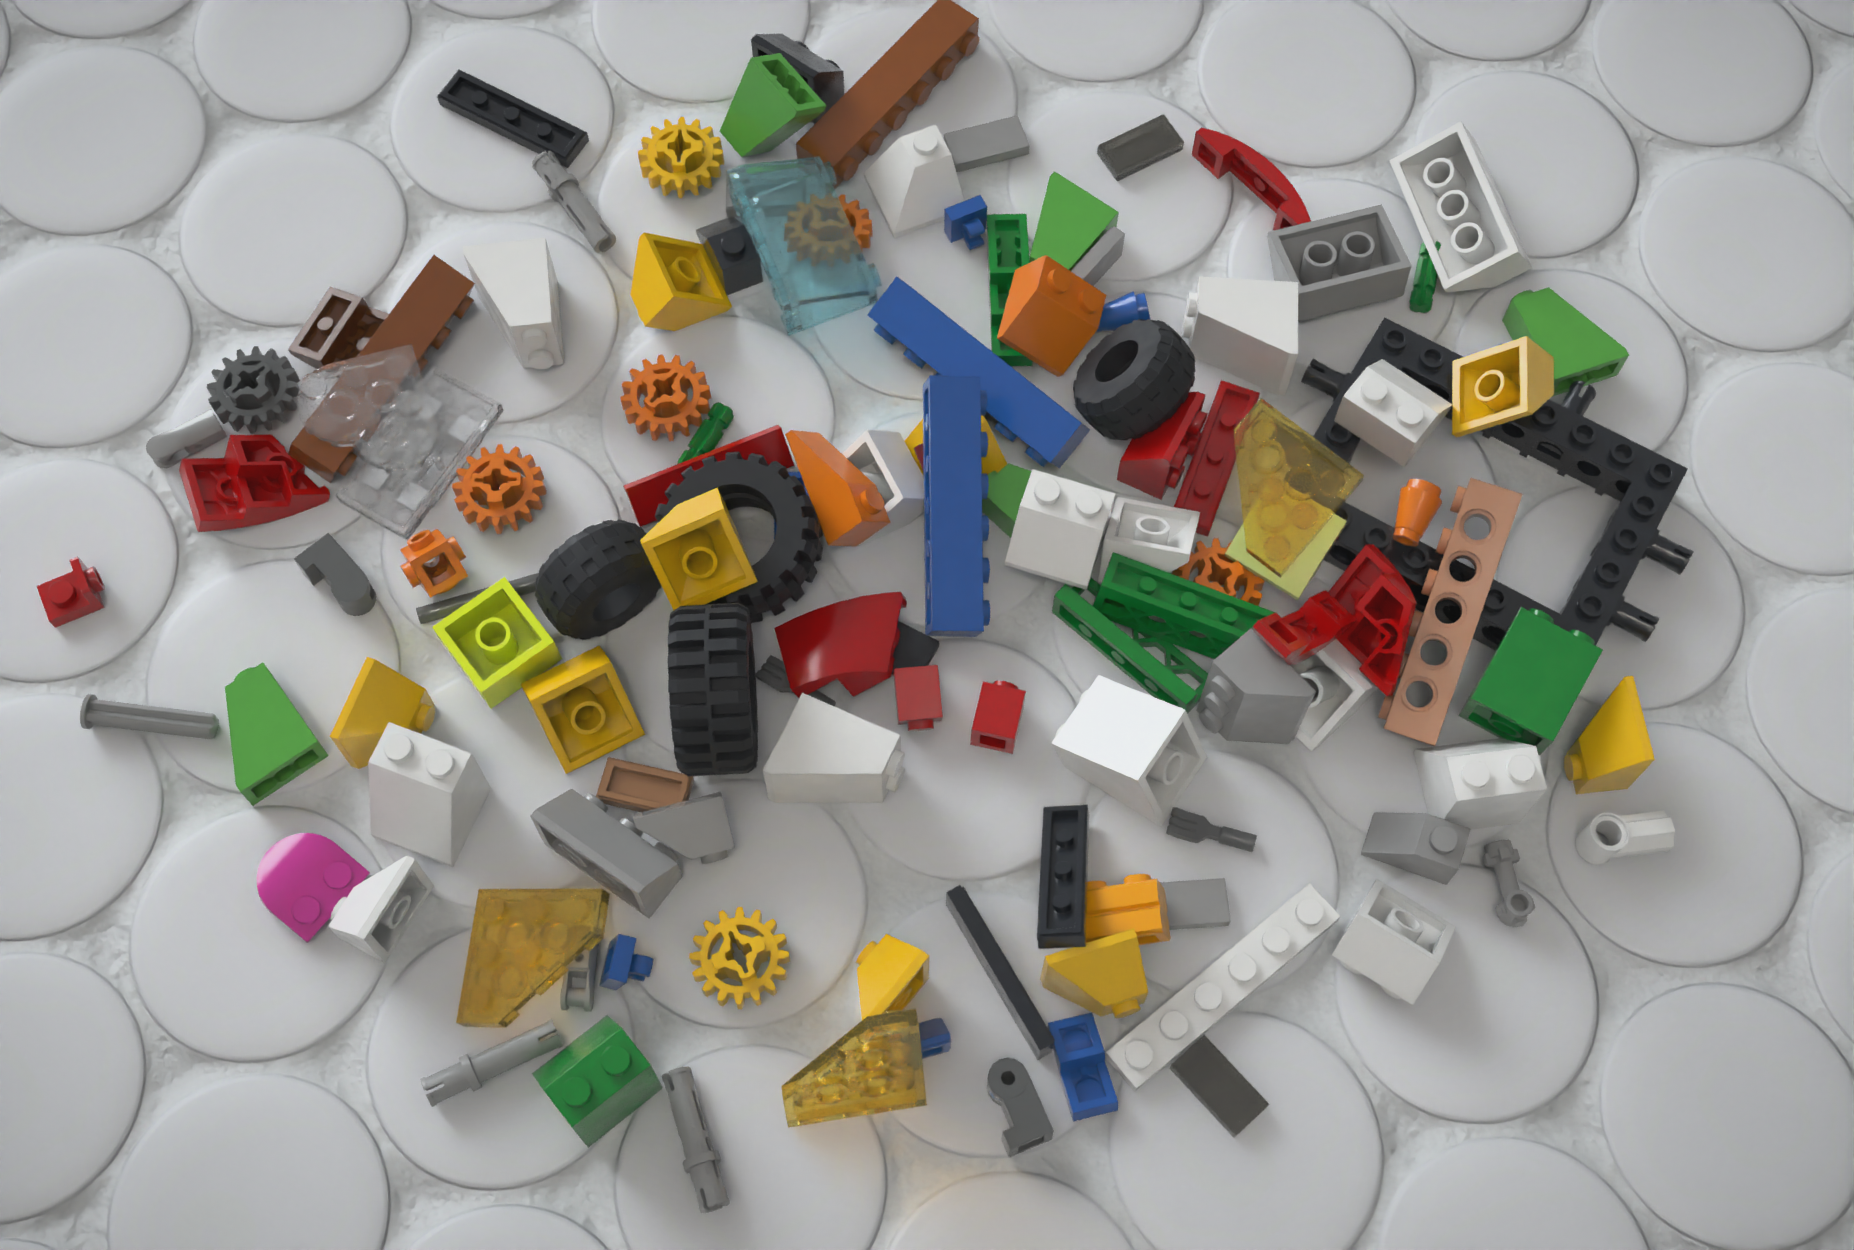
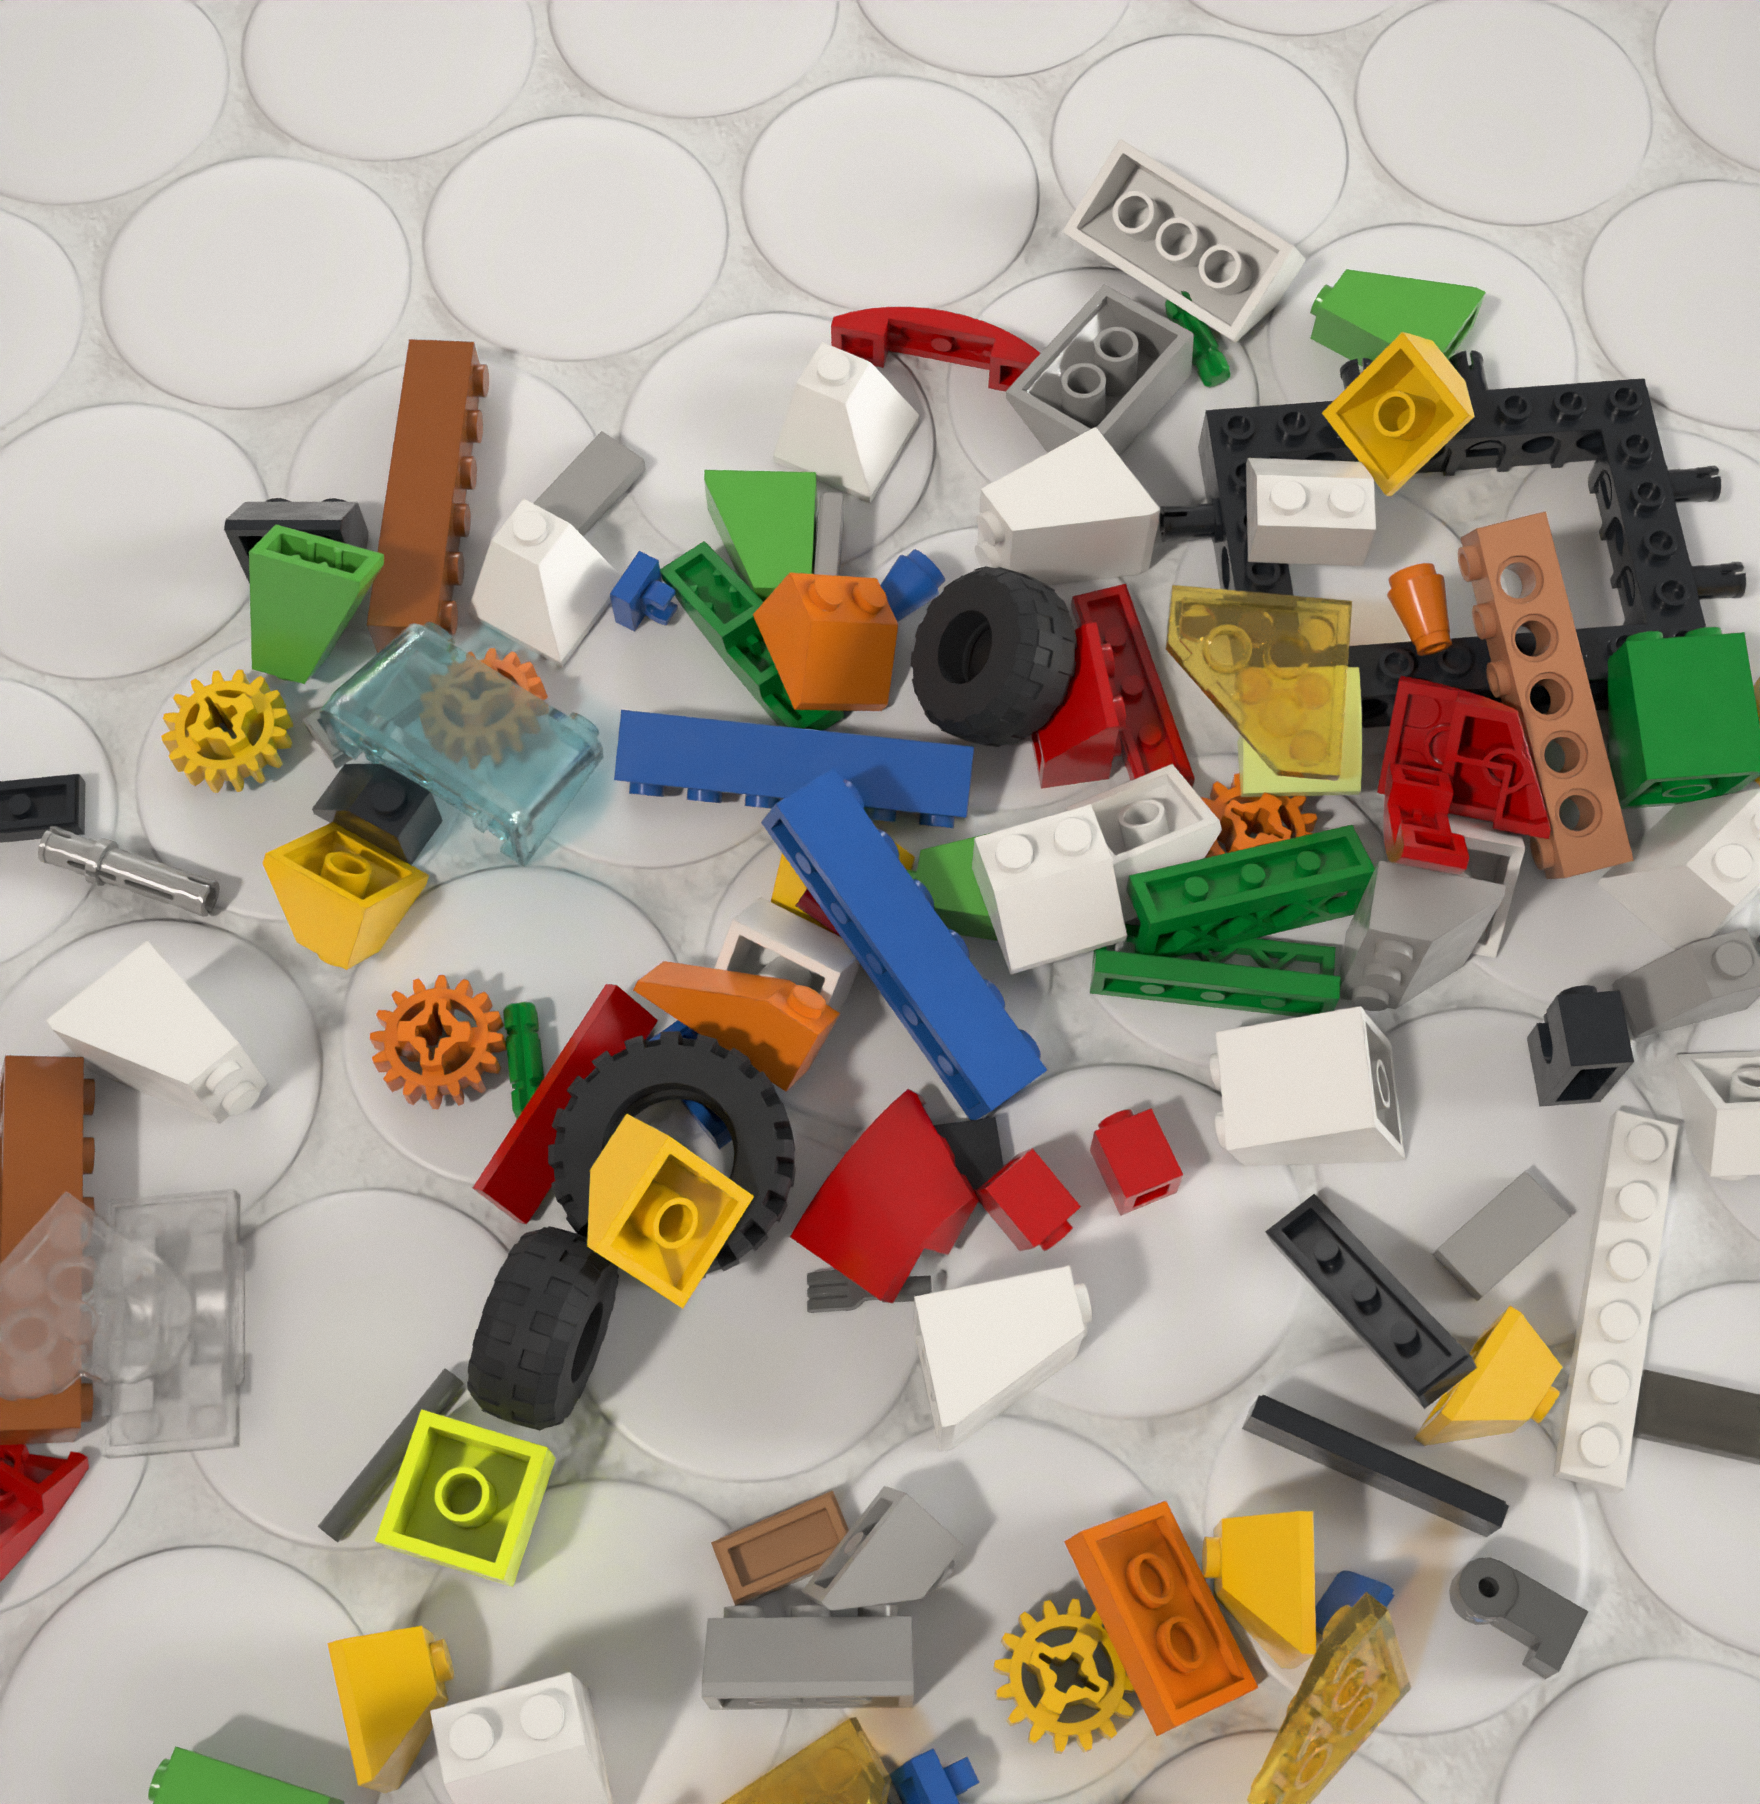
camera: 35 degrees left, 0 degrees up
(347, 581) = (182, 1551): dark grey leg -> none
(443, 571) = (302, 1453): orange brick -> none
(500, 489) = (291, 1311): orange gear -> none
(583, 709) = (634, 1504): yellow slope -> none
(712, 689) = (805, 1368): black tyre -> none
(812, 961) = (1160, 1616): none -> orange plate
(1083, 1067) = (1546, 1508): blue slope -> none
(1121, 907) = (1467, 1285): light orange brick -> none
(1140, 147) = (768, 384): clear smoke tile -> none
(1163, 196) = (844, 424): none -> white slope
(1197, 828) = (1446, 1133): dark grey piece -> none
(1308, 826) = (1580, 1047): none -> black brick

